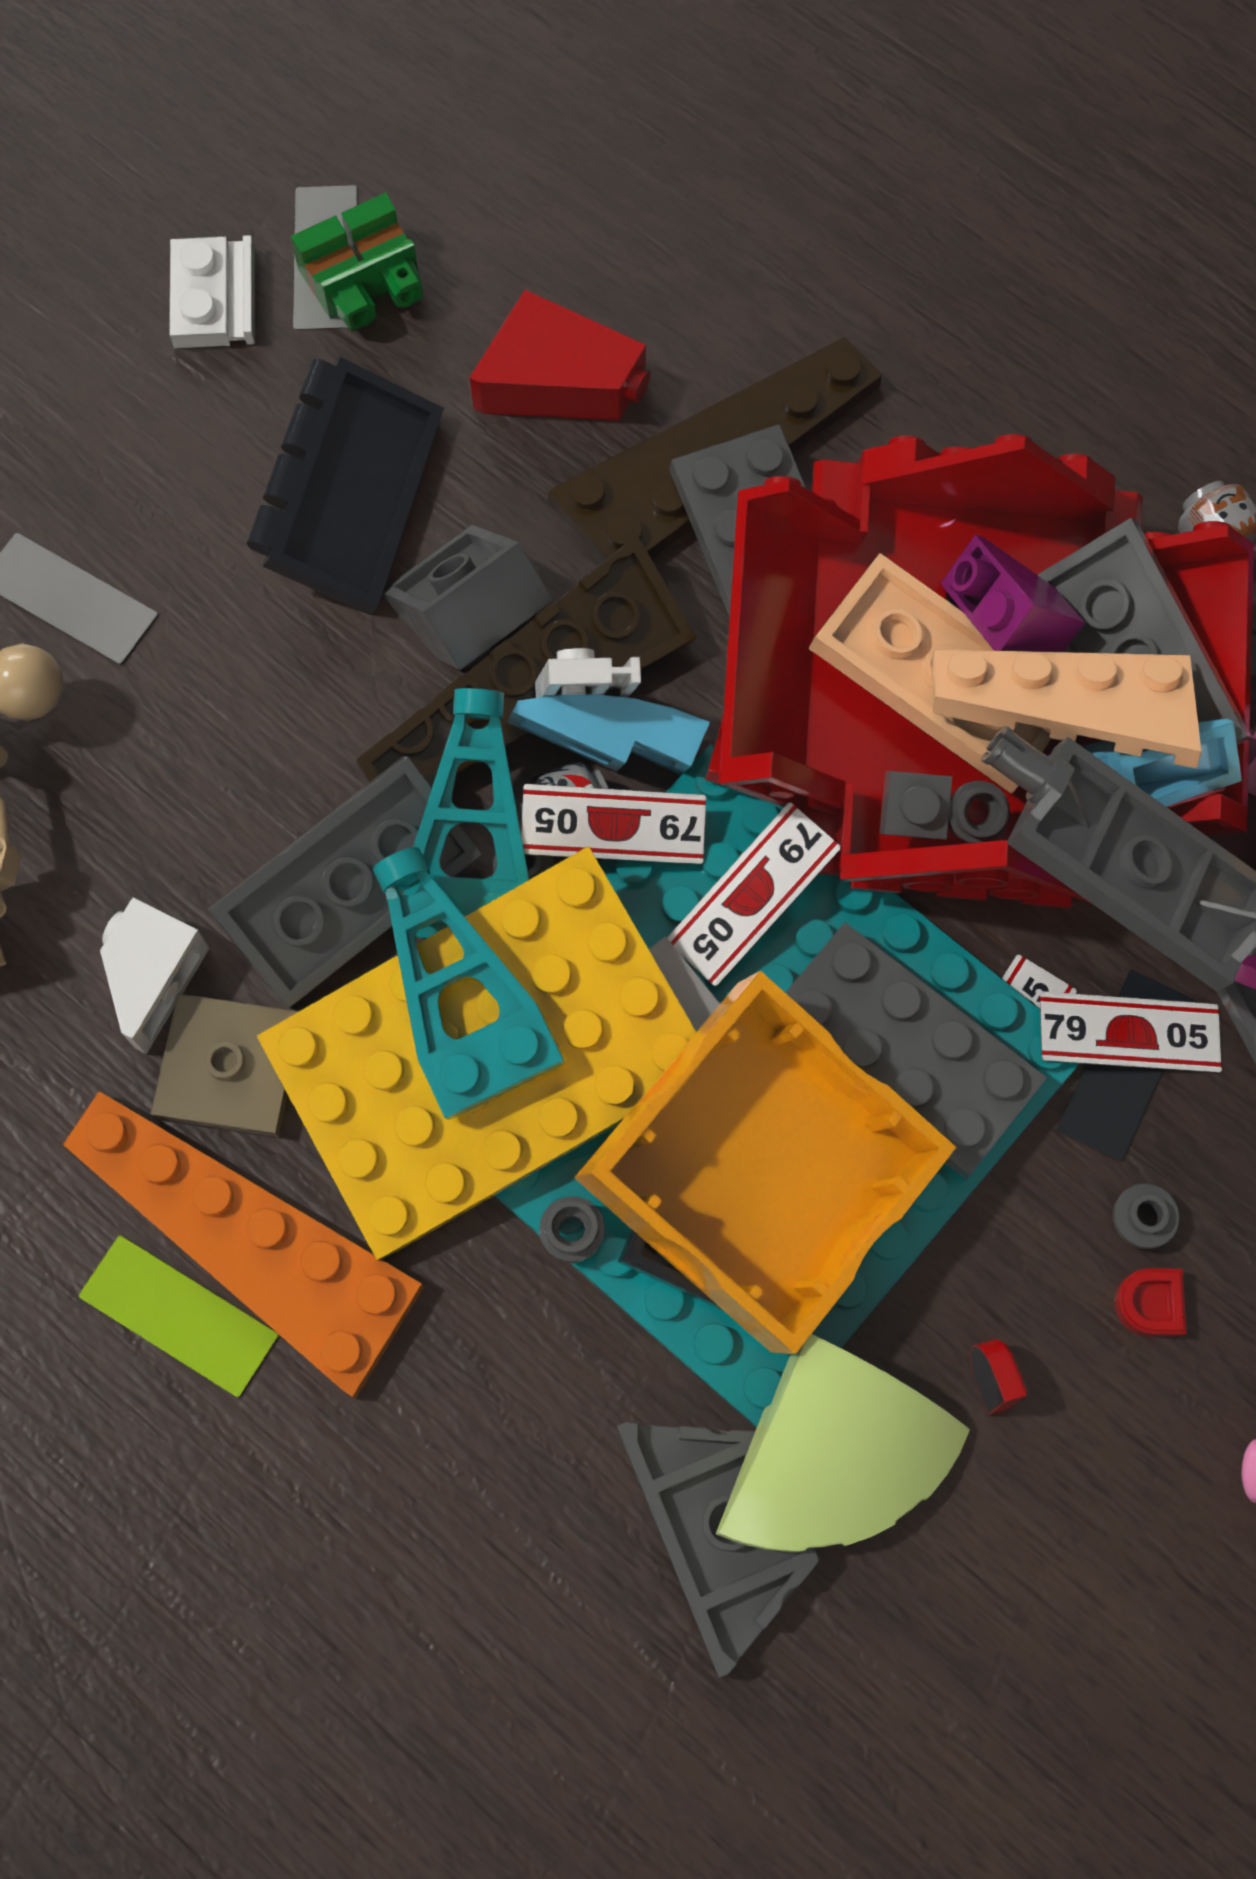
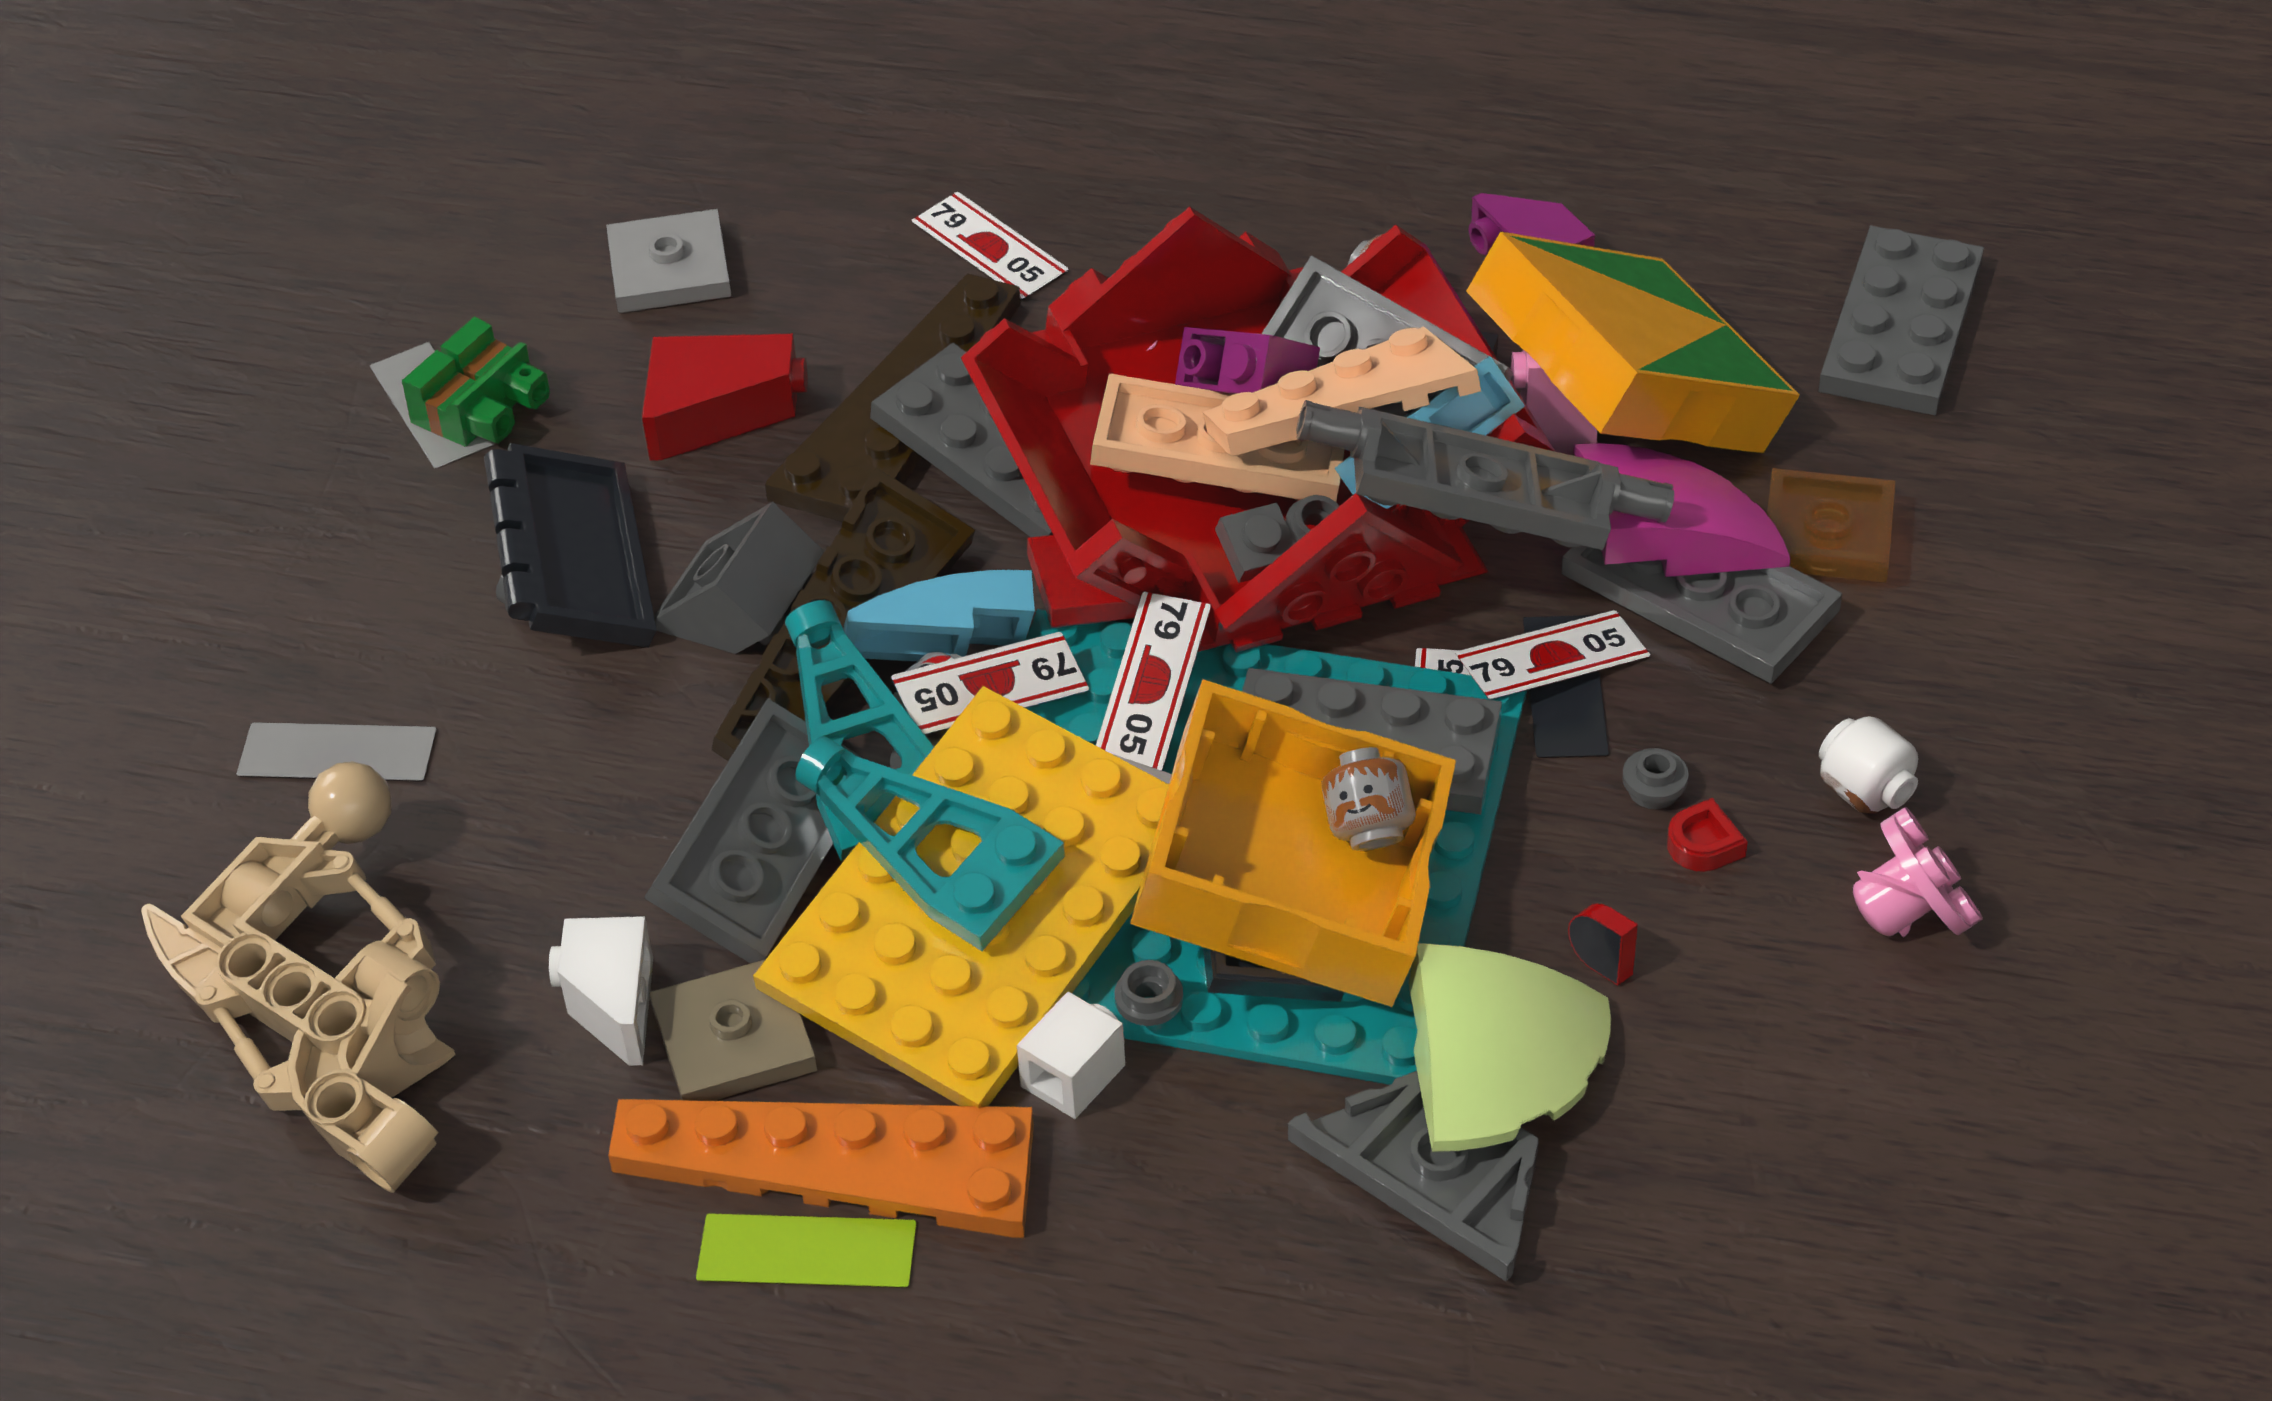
camera: 25 degrees left, 25 degrees down
(212, 291) = (338, 467): white plate -> none
(482, 1248) = (1071, 1054): none -> white brick
(580, 673) = (903, 558): white plate -> none
(597, 193) = (668, 261): none -> light grey plate
(852, 1153) = (1368, 799): none -> light grey head
(887, 307) = (989, 244): none -> white sticker

